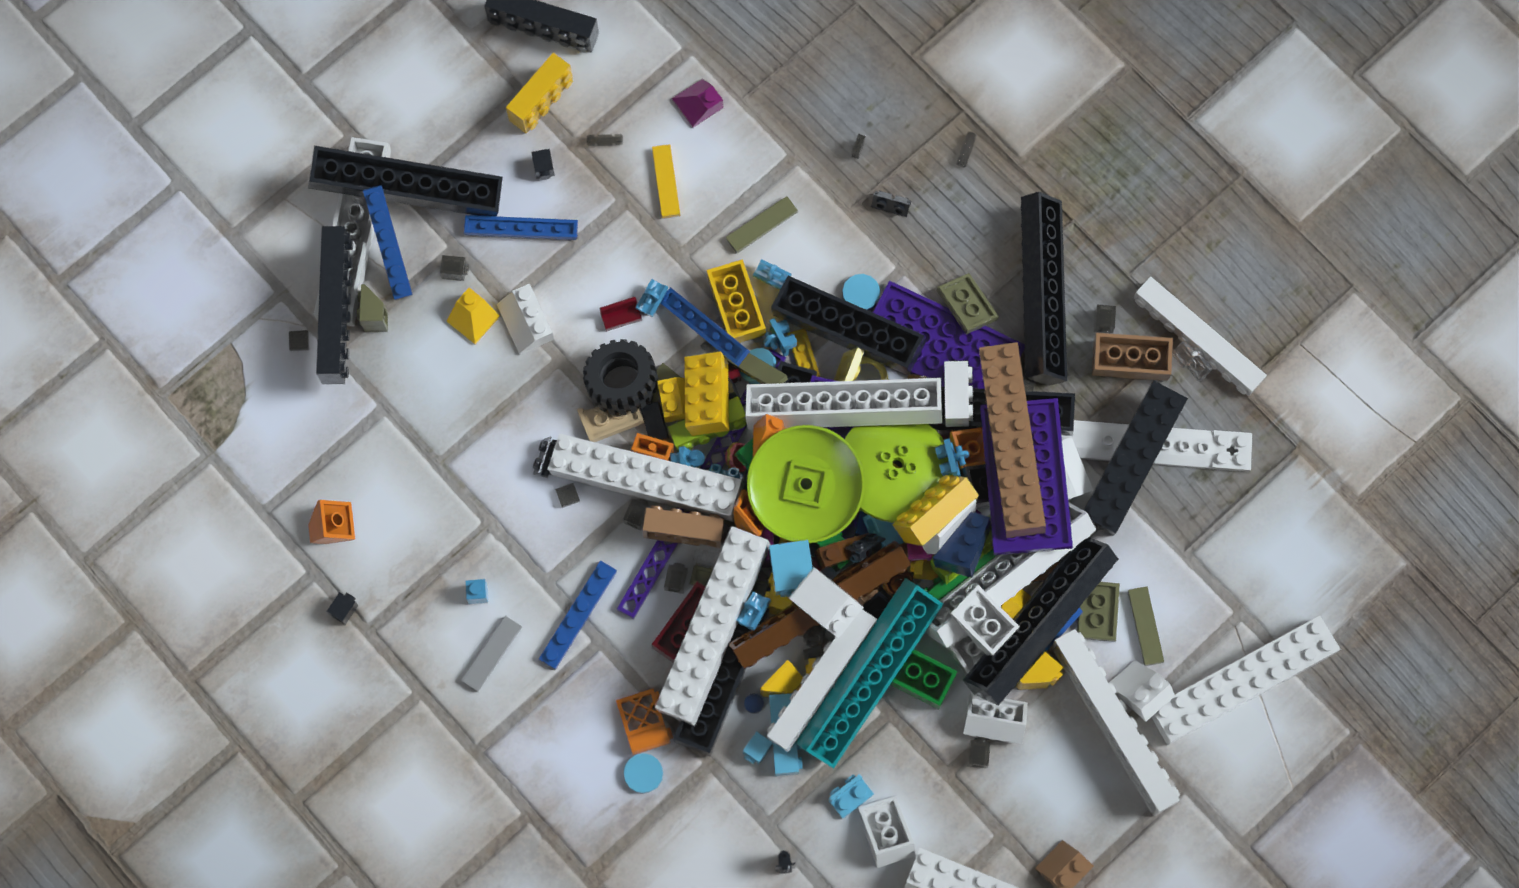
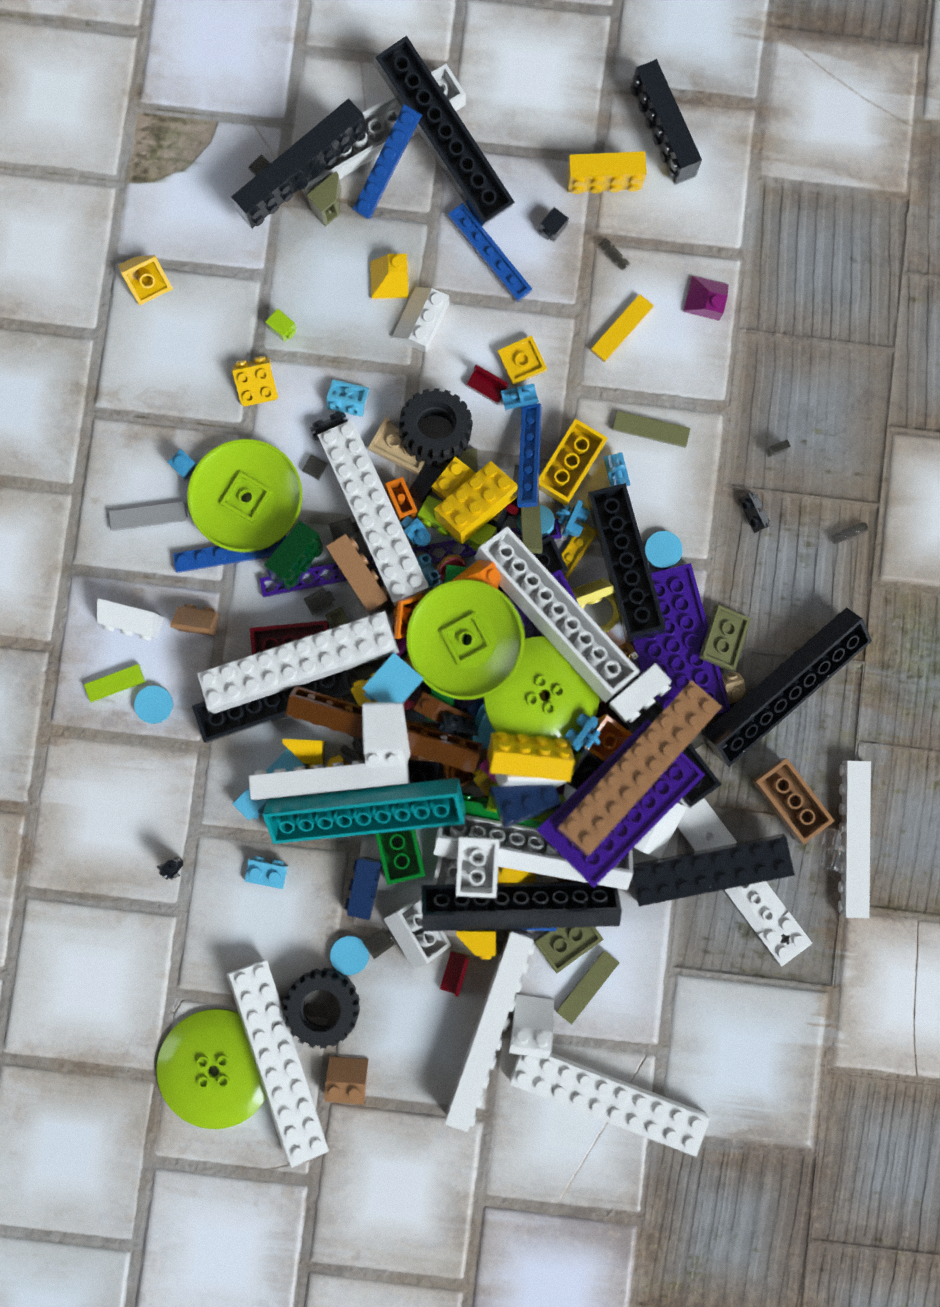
camera: 45 degrees right, 10 degrees up
(301, 496) = (145, 278): none -> yellow slope
(331, 522) = (144, 313): orange slope -> none
(343, 607) = (88, 378): black brick -> none
(436, 427) = (281, 325): none -> lime brick
(453, 268) = (414, 230): clear smoke brick -> none
(460, 482) = (255, 381): none -> yellow bracket
(537, 425) = (347, 398): none -> medium azure bracket
(538, 537) = (238, 469): none -> lime dish
(561, 733) = (128, 619): none -> white slope
(600, 789) = (114, 683): none -> lime tile
(608, 683) = (195, 620): none -> medium nougat slope
(625, 273) = (522, 360): none -> yellow plate
(626, 564) = (294, 556): none -> dark green brick
(645, 737) = (183, 685): orange piece -> none
(753, 610) = (336, 683): dark azure hips -> none
(753, 703) = (274, 741): dark blue tile -> none
(757, 748) = (240, 772): medium azure brick -> none
(887, 831) = (261, 922): white slope -> none
(926, 728) = (363, 887): none -> dark blue wedge
(969, 785) = (349, 955): none -> medium azure tile
(1007, 815) = (305, 1029): none -> black tyre
(1010, 327) = (734, 686): none -> tan bracket
(1051, 716) = (454, 972): none -> dark red panel
(1104, 319) = (804, 754): clear smoke brick -> none

